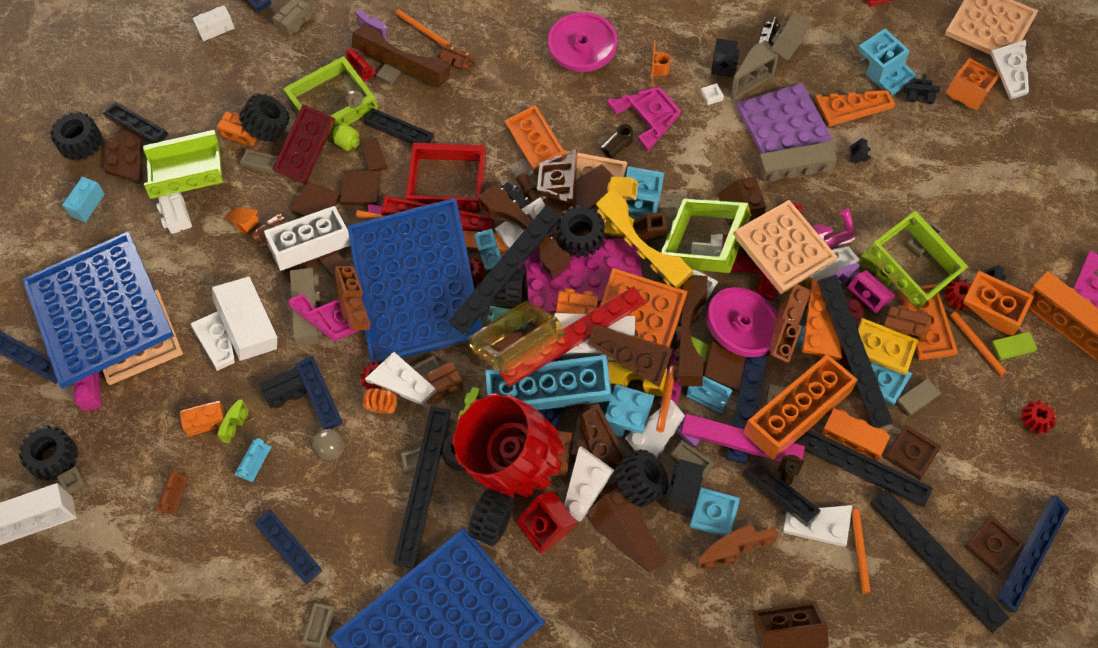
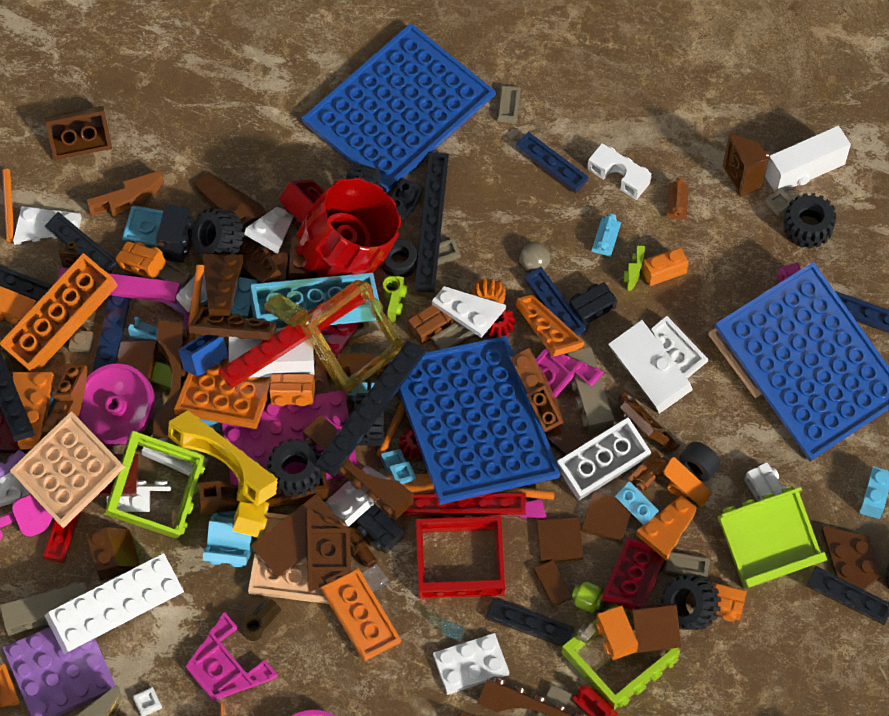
camera: 170 degrees right, 0 degrees up
(89, 503) = (745, 164): none -> reddish brown slope
(208, 517) = (607, 160): none -> white arch
(224, 231) = (700, 460): none -> black tyre
(264, 272) = (647, 424): none -> reddish brown wing
(267, 186) = (666, 527): none -> orange wing
(287, 205) = (637, 503): none -> medium azure hinge
(296, 94) = (656, 627): none -> reddish brown tile
(327, 356) = (549, 328): none -> orange wing
(329, 95) = (616, 633): none -> orange brick
(448, 515) = (406, 197): none -> black connector
(451, 103) = (470, 663): none -> white plate
(461, 122) = (452, 630): none -> clear light blue tile
(576, 355) = (286, 310): none -> clear yellow tile
(639, 412) = (221, 280): none -> reddish brown wing
(664, 333) = (203, 354): none -> blue brick
(720, 465) = (141, 260): none -> orange brick
(740, 148) = (113, 603): none -> white brick

